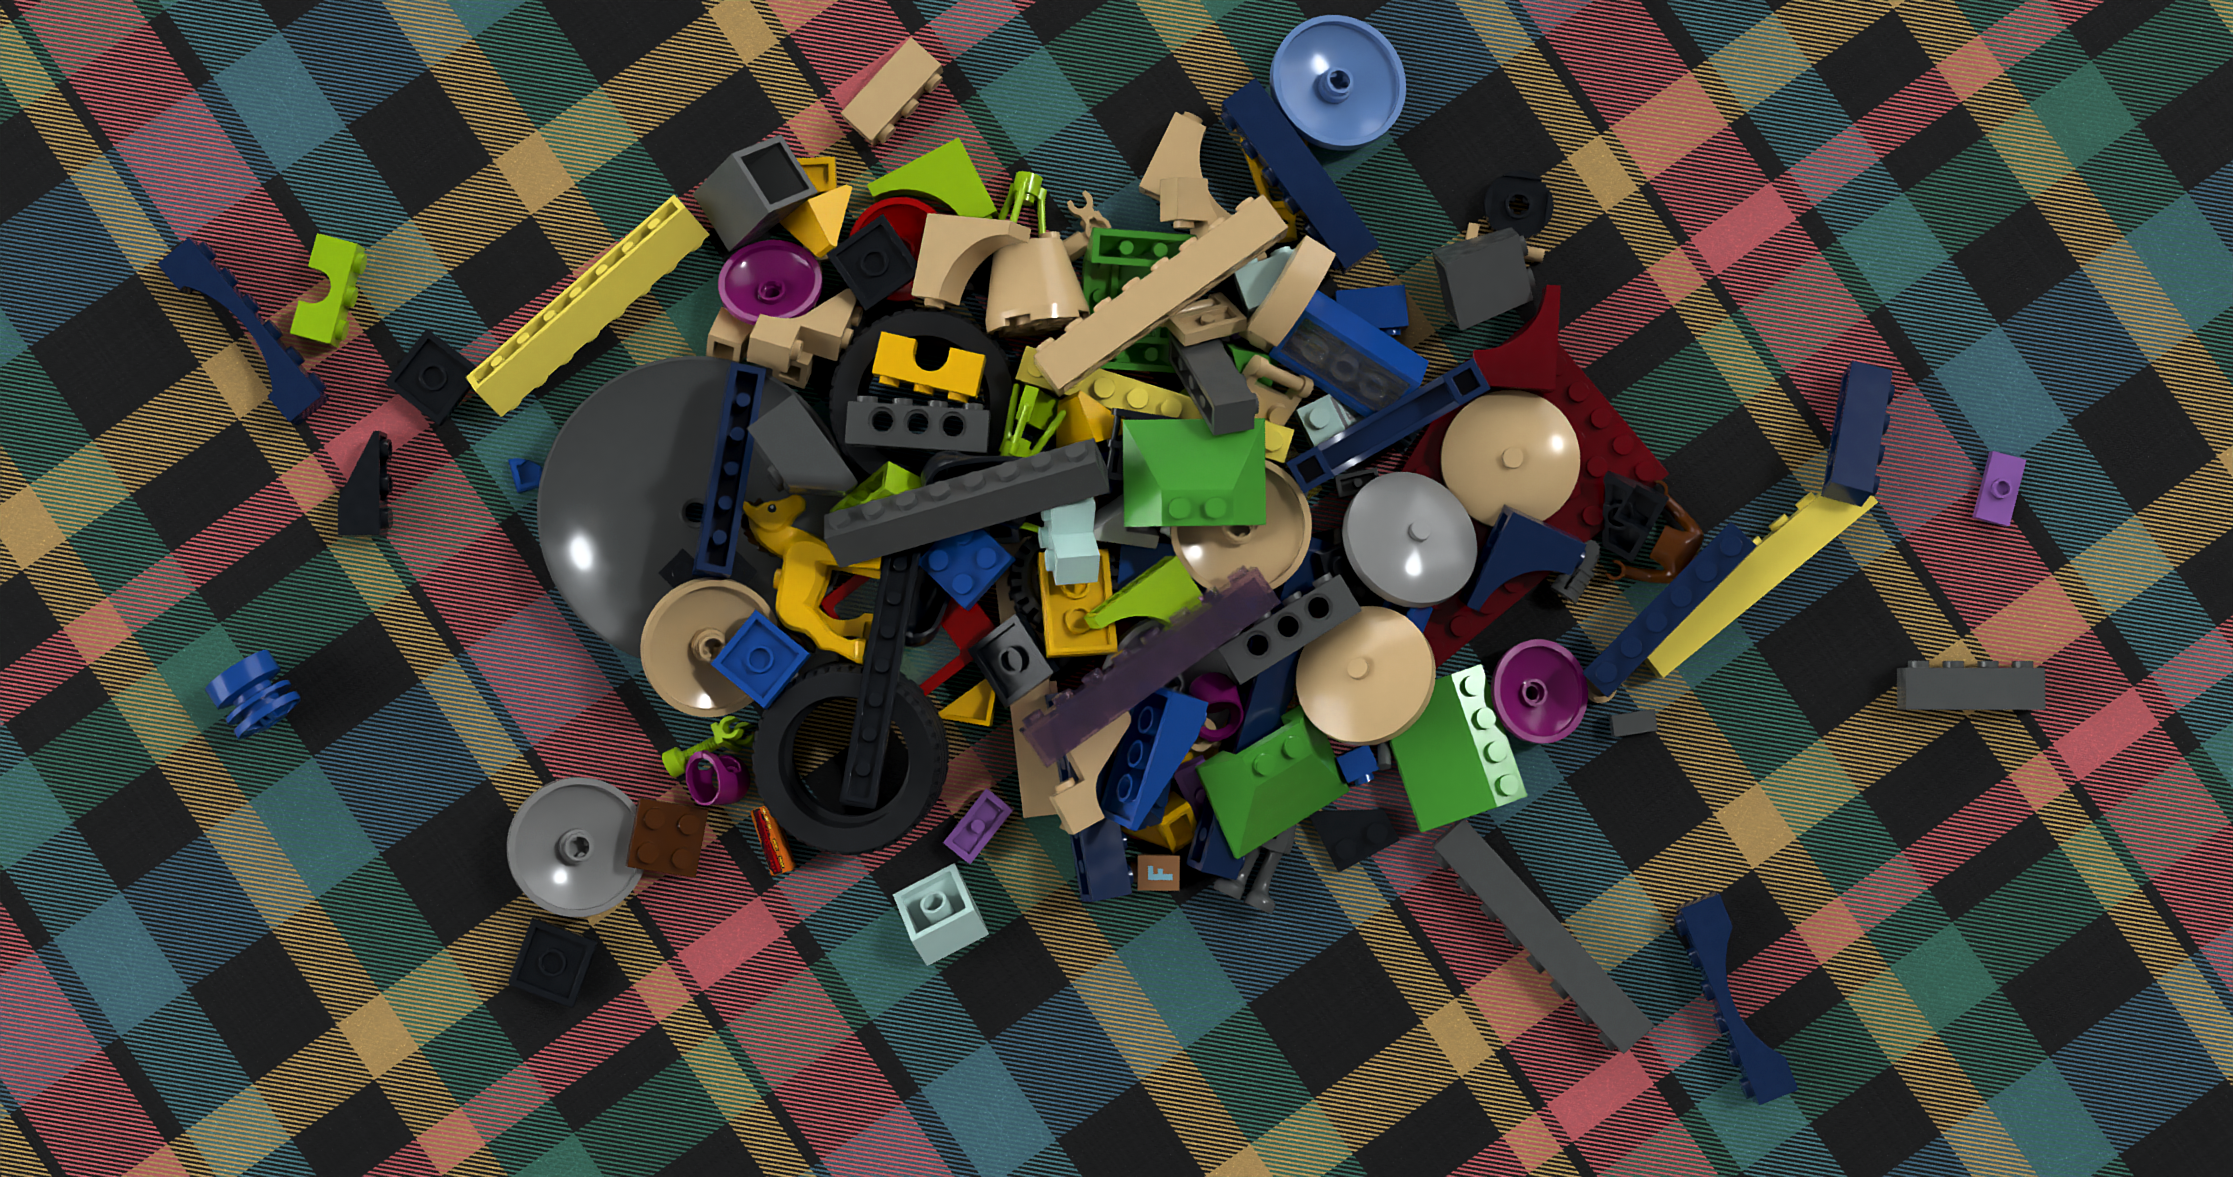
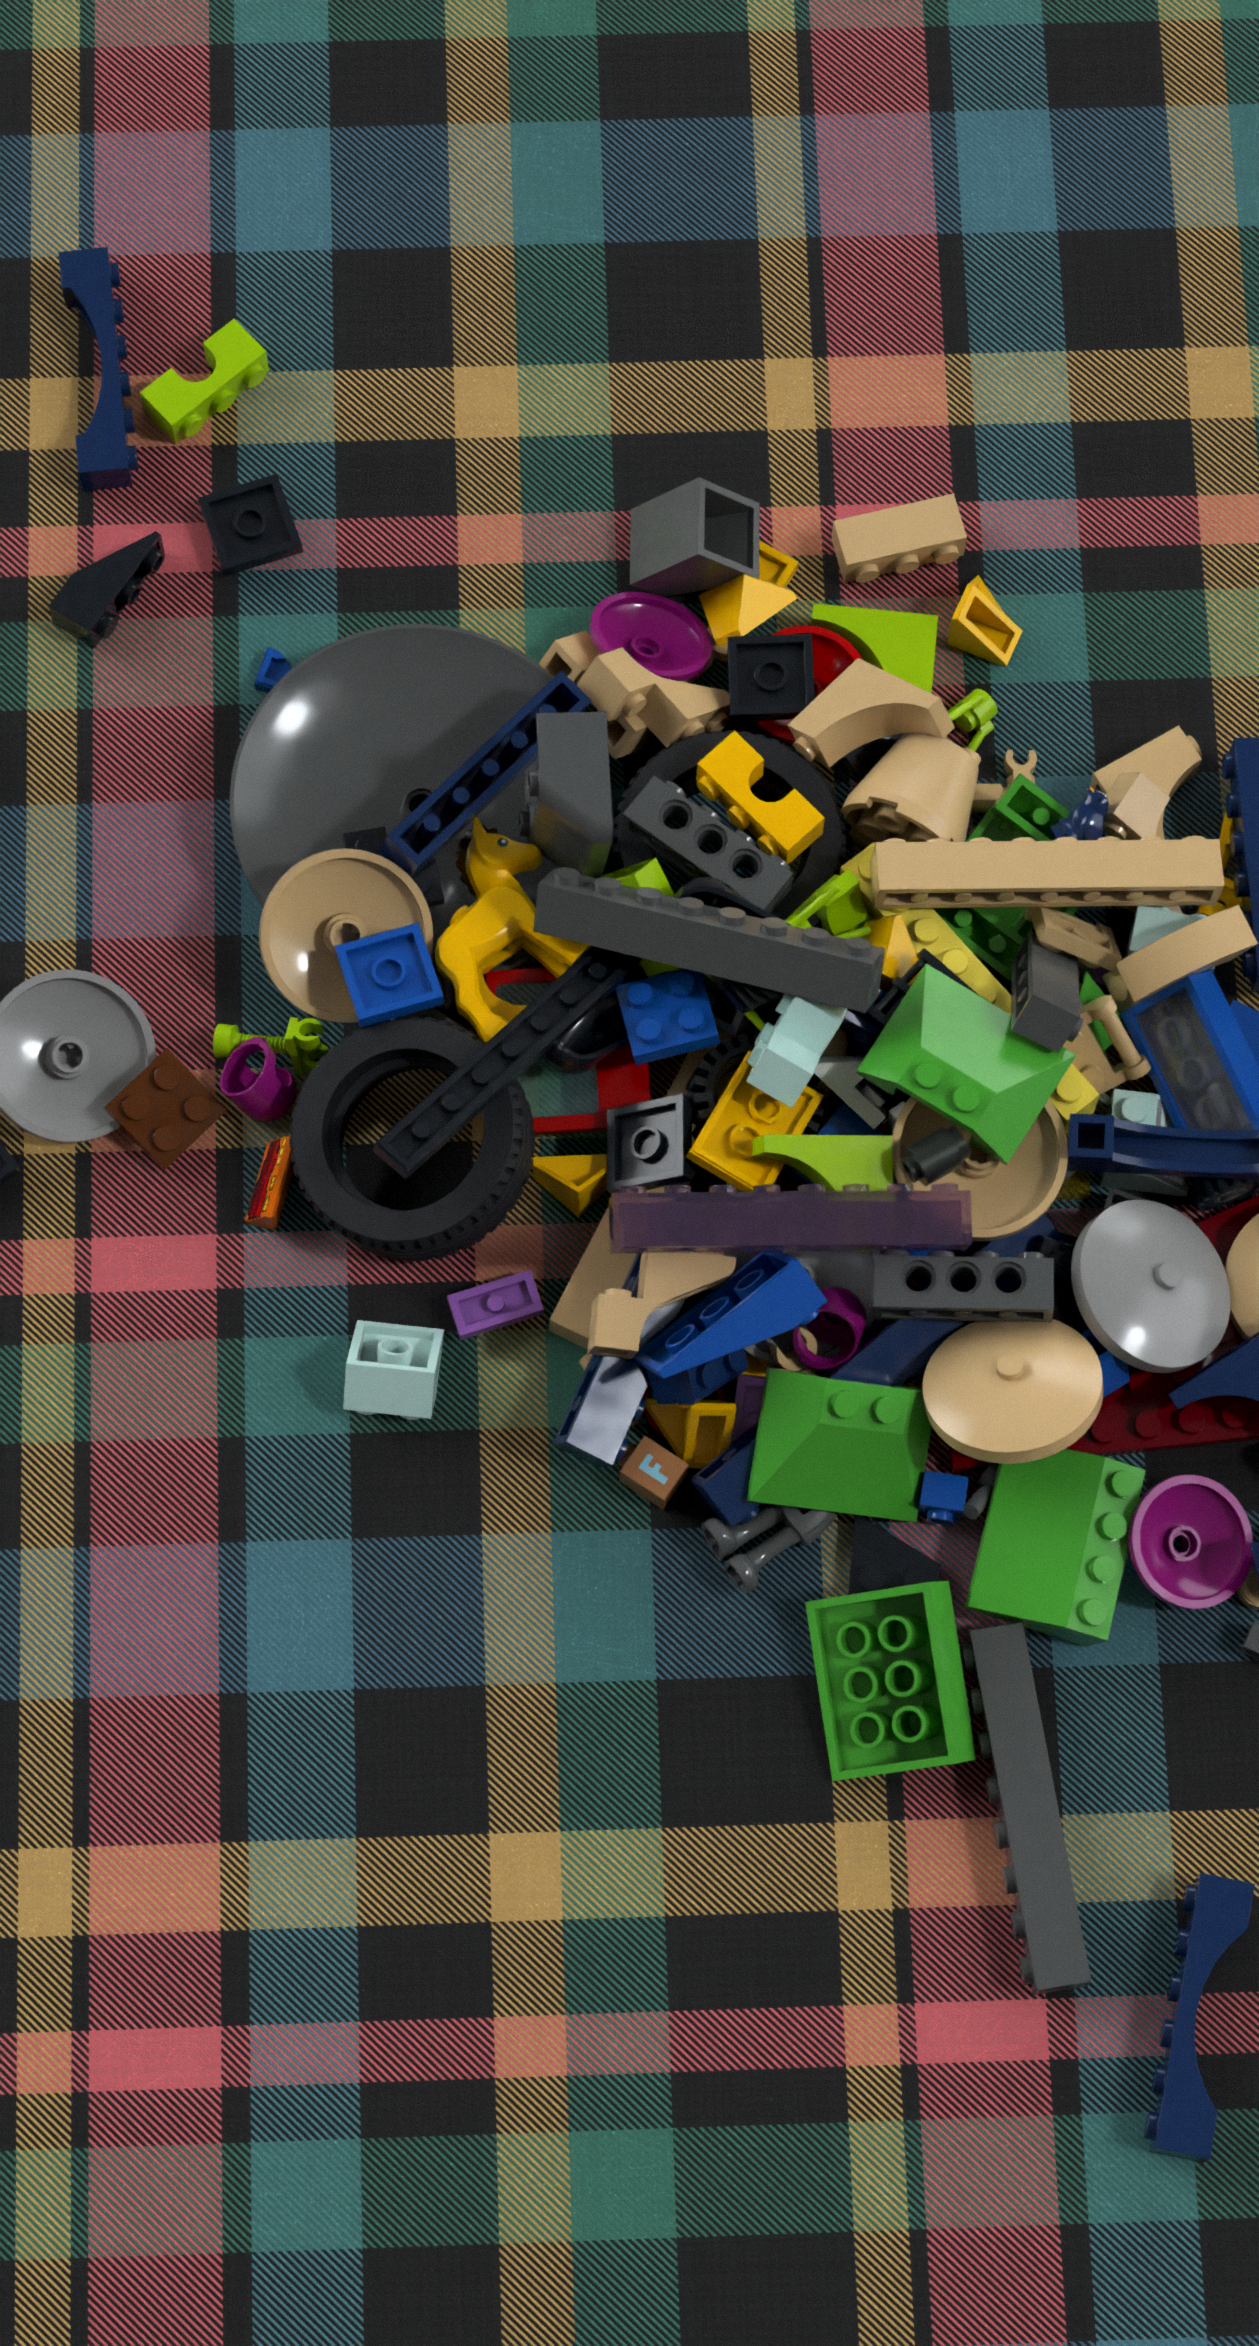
camera: 30 degrees right, 15 degrees down
(587, 306) = (452, 549): light yellow brick -> none
(992, 117) = (982, 626): none -> yellow slope
(1161, 237) = (1084, 819): none -> dark blue animal
(1215, 553) = (935, 1155): none -> pearl dark grey brick
(1403, 911) = (890, 1680): none -> bright green slope

